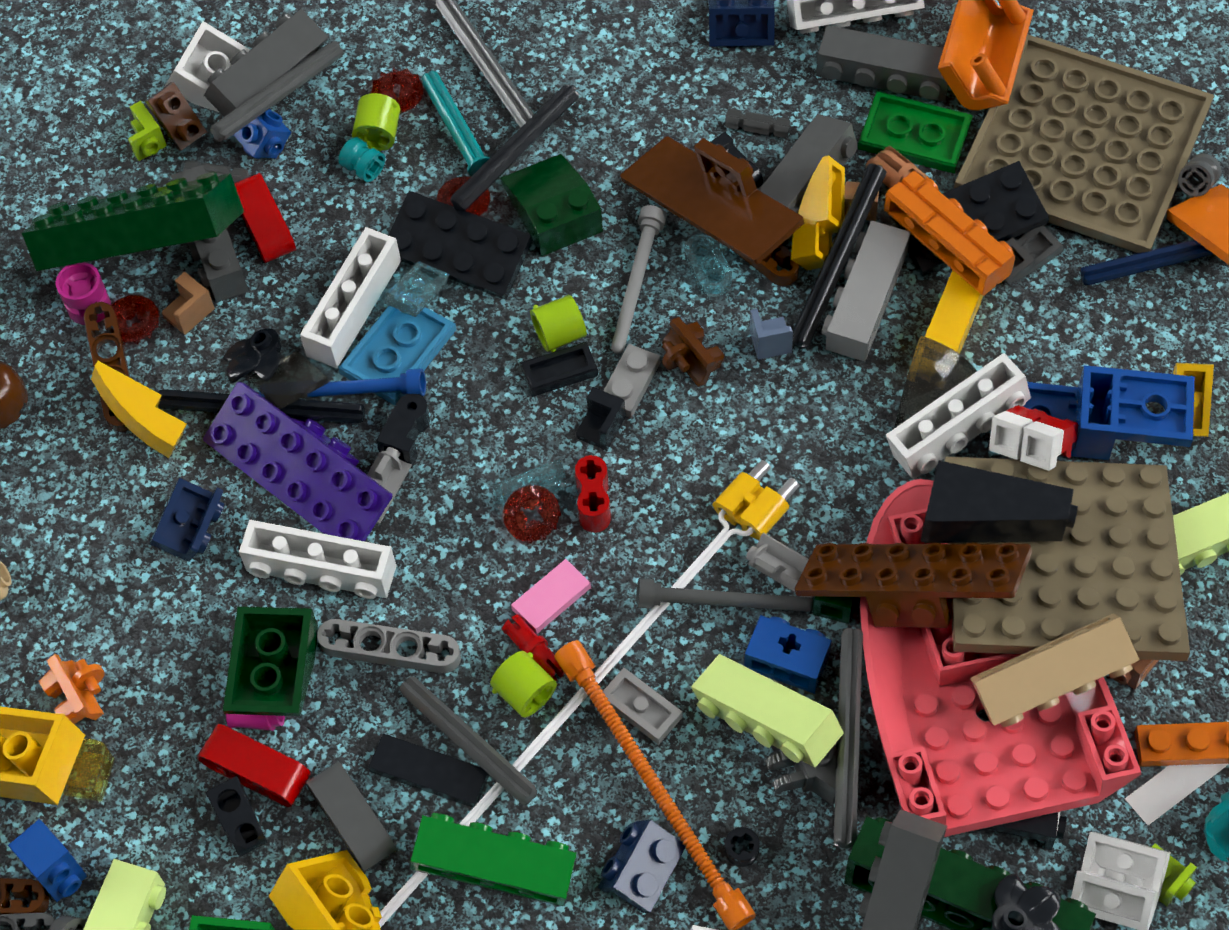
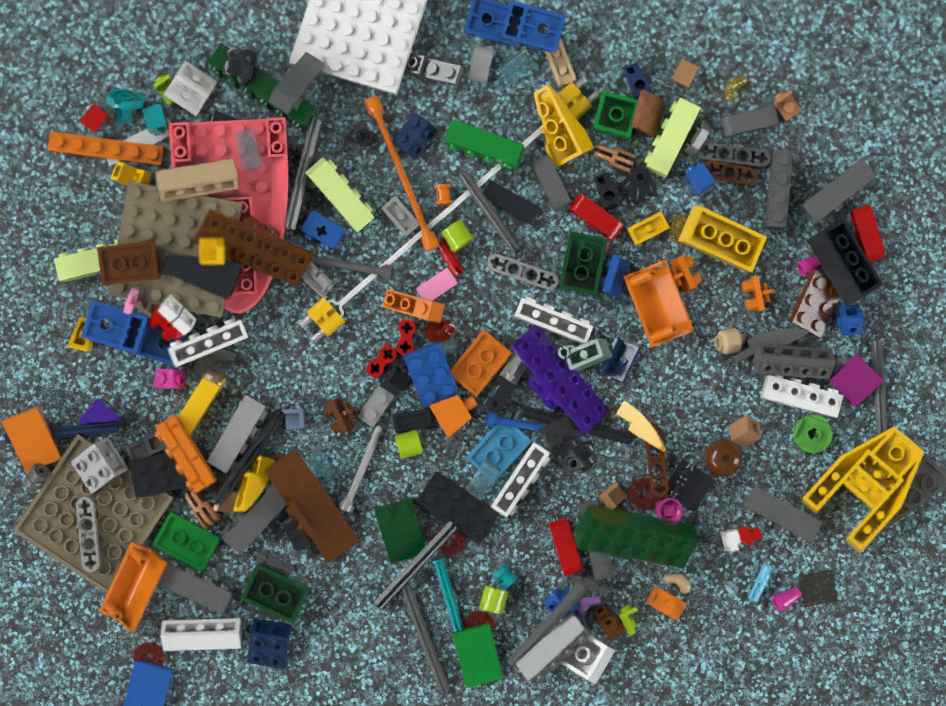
camera: 175 degrees left, 25 degrees up
(51, 344) = (688, 485): none -> black hinge
(53, 194) = (679, 580): none -> tan arm
(80, 158) = (666, 603): none -> orange torso
(120, 624) = (658, 303): none -> orange piece
(149, 762) = (648, 228): none -> yellow plate
(173, 839) = (638, 188): none -> black plate
(209, 662) = (614, 279): none -> blue bracket
(215, 150) = (585, 603): none -> medium lavender arm
(224, 887) = (614, 157): none -> nougat arm
(233, 505) = (585, 354): none -> sand green hinge
(393, 46) = (477, 655): none -> green tile
(449, 479) = (480, 363): none -> orange tile
(487, 385) = (453, 413): none -> orange torso
(535, 436) = (431, 374): none -> blue plate
(563, 759) = (443, 194): none -> orange bush
(579, 544) = (413, 305): none -> orange slope
(627, 451) = (381, 361): none -> red axle
(744, 72) = (275, 593): none -> dark green brick
(967, 754) = (248, 150): none -> clear light blue plate
(988, 528) = (211, 250): none -> yellow panel
(1022, 354) = (169, 379): none -> dark pink bracket
(1084, 104) = (85, 534): none -> light grey beam
(1093, 202) = (99, 464): none -> light grey bracket
(1113, 276) = (101, 412): none -> dark purple slope
(1118, 448) = (131, 301): none -> bright pink tile
(1143, 507) = (128, 262): none -> reddish brown plate
(1171, 807) = (156, 119): none -> teal brick
(1188, 690) = (123, 173): none -> yellow brick

